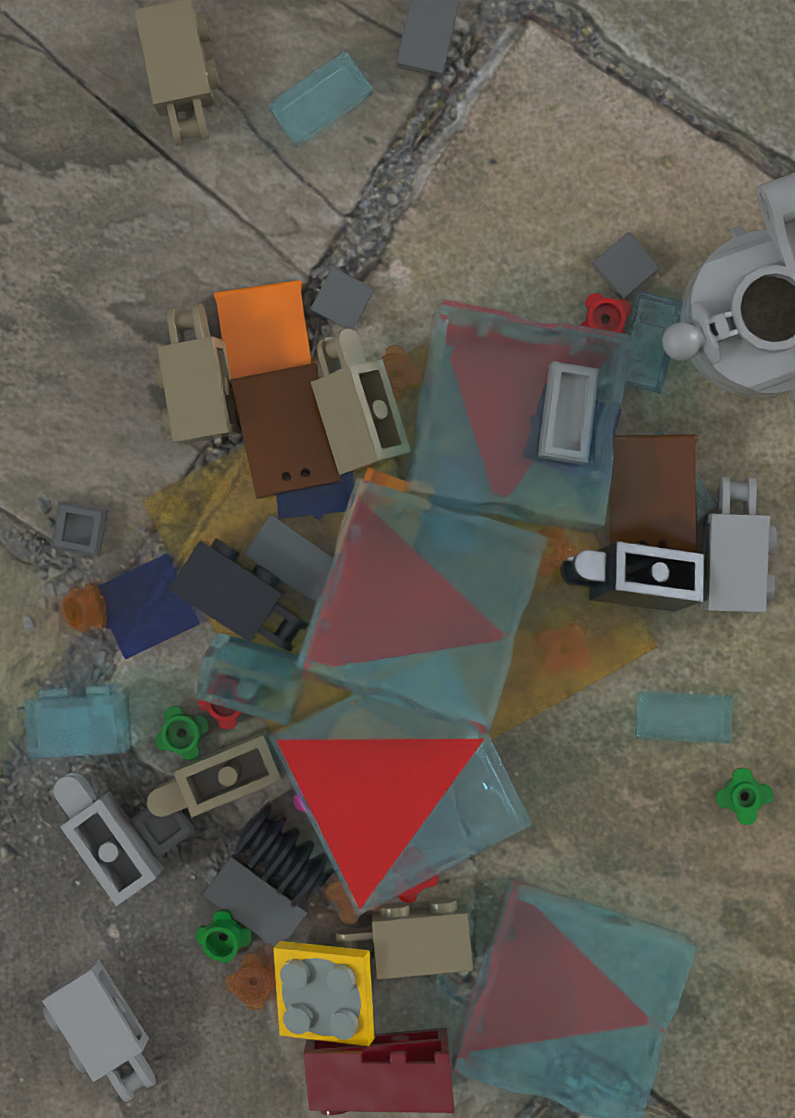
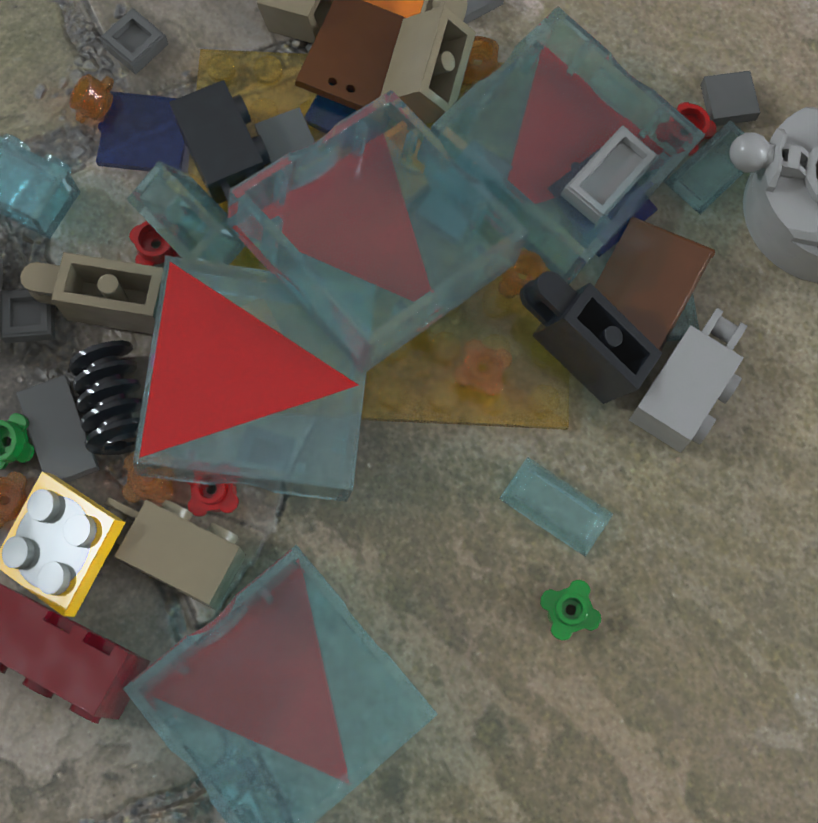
camera: 25 degrees right, 15 degrees down
(169, 739) = (99, 233): green plate -> none

